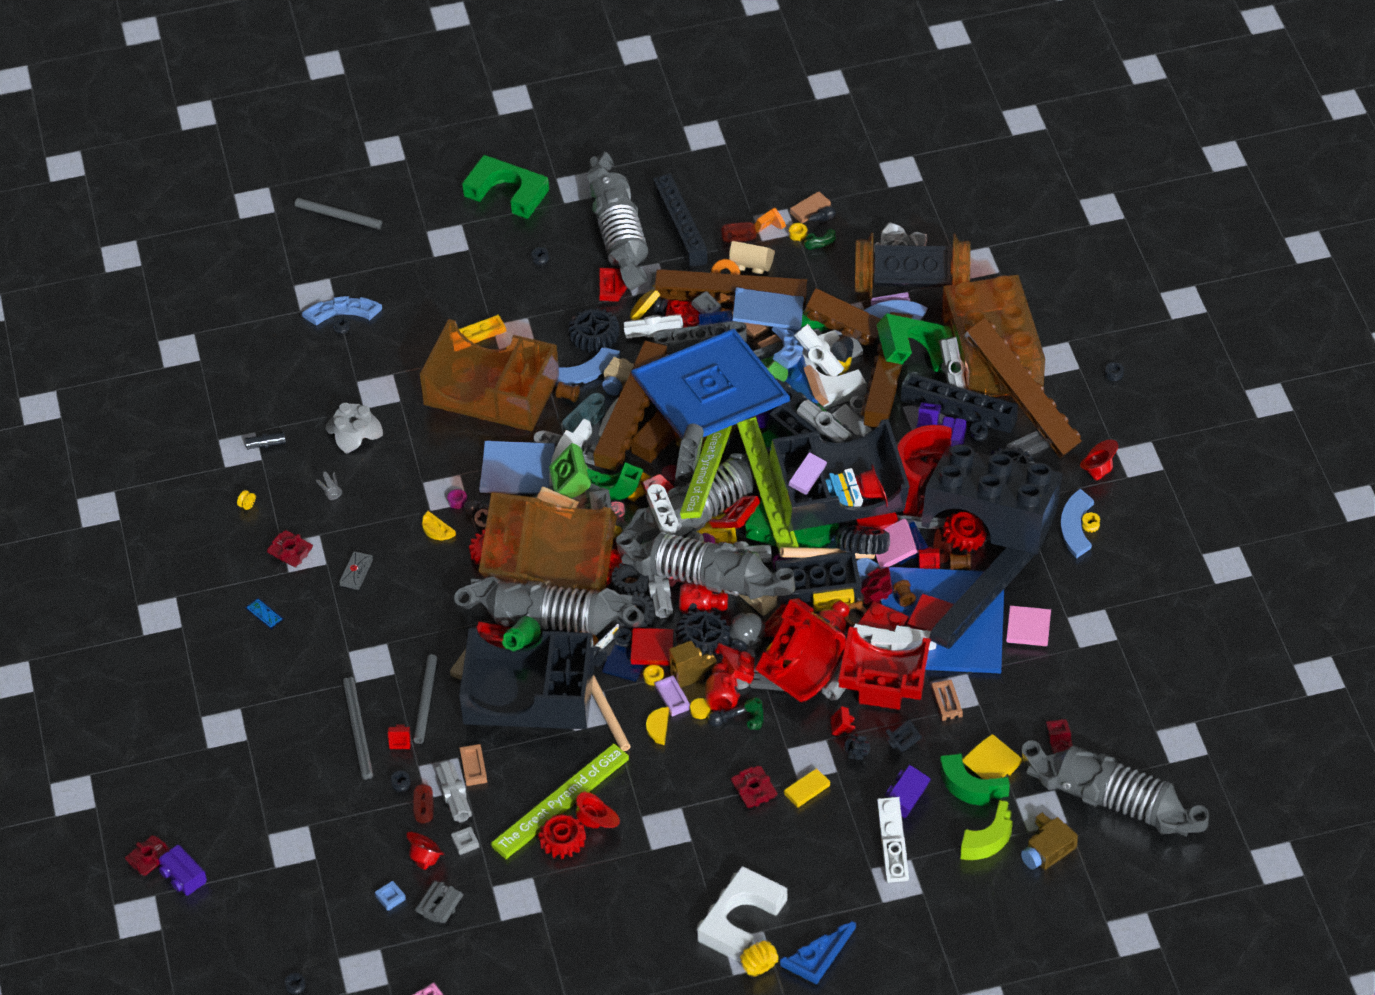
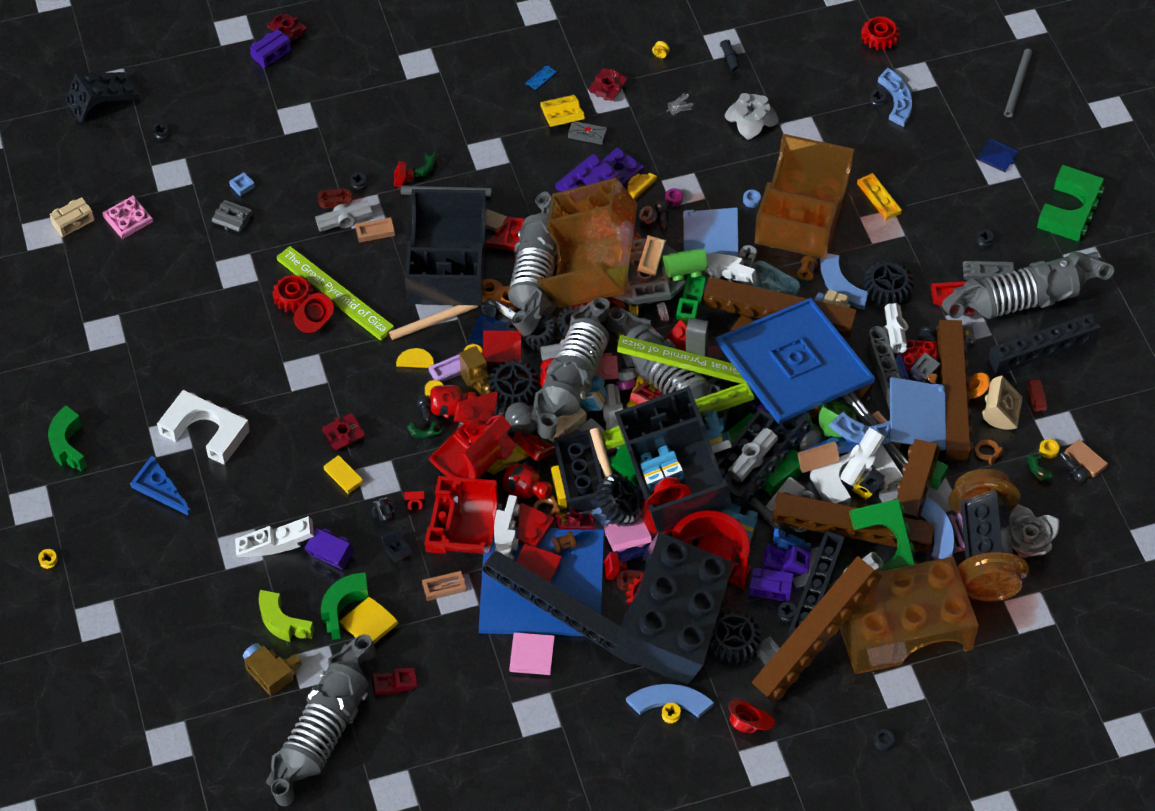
camera: 85 degrees right, 5 degrees up
(254, 313) = (880, 33): none -> red gear
(321, 591) = (562, 110): none -> yellow slope
(358, 729) = (414, 148): dark grey axle -> none
(380, 711) = (426, 169): none -> dark green piece
(423, 850) = (284, 198): red piece -> none
(430, 554) = (597, 170): none -> dark purple bracket
(432, 238) = (997, 155): none -> clear blue piece
(465, 840) = (295, 229): light grey tile -> none
(466, 434) = (752, 198): none -> medium blue tile
(522, 633) = (497, 239): green plant -> none
(584, 253) = (985, 269): none -> dark grey hinge
(644, 304) = (922, 319): yellow tile -> none
(663, 501) = (651, 329): white beam -> none
(758, 958) = (152, 437): yellow gear -> none
(772, 217) = (1057, 418): orange tile -> none
(807, 473) = (651, 418): lavender tile -> none
(808, 272) = (991, 458): none -> dark orange piece
(910, 417) = (785, 543): none -> blue wing
(960, 561) = (611, 593): reddish brown bush -> none

